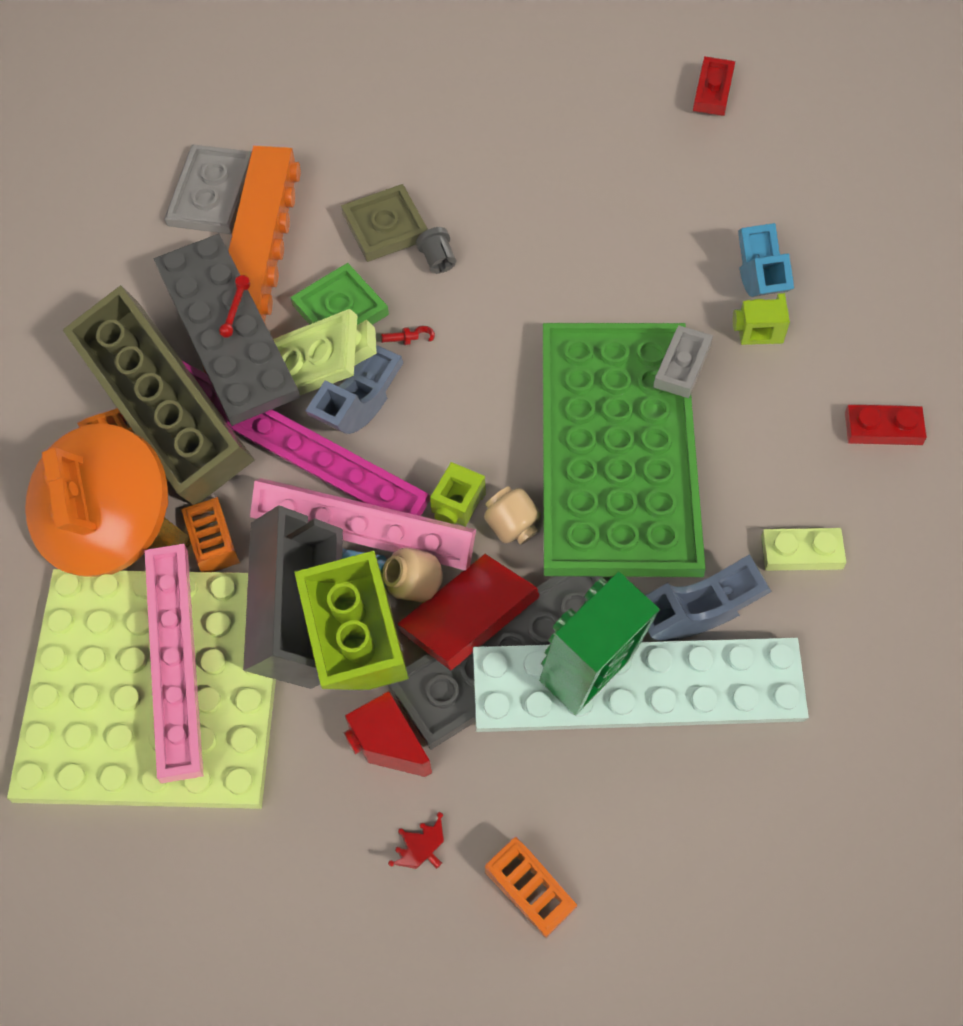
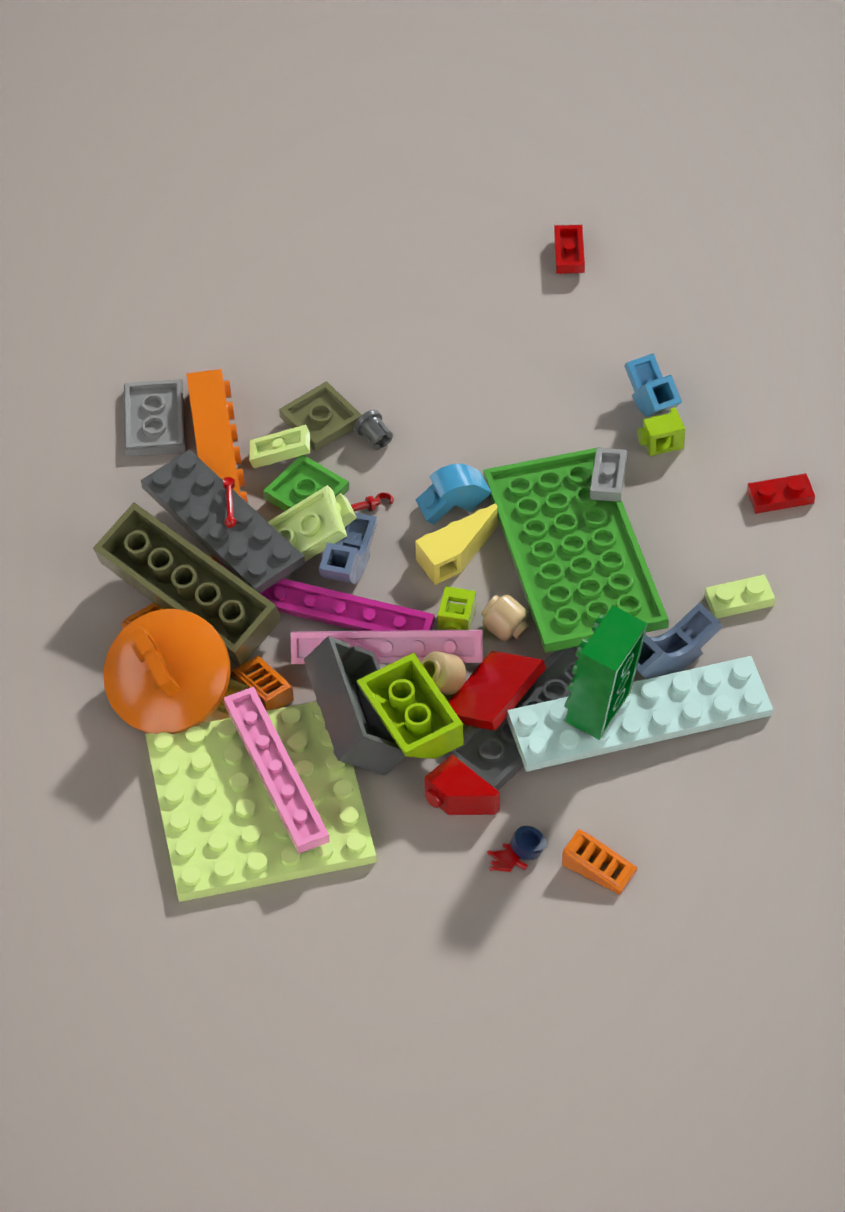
camera: 15 degrees left, 10 degrees down
(326, 249) = (279, 446): none -> yellowish green plate
(450, 833) = (528, 842): none -> dark blue tile
(480, 411) = (454, 546): none -> light yellow slope
(501, 338) = (452, 486): none -> dark azure brick

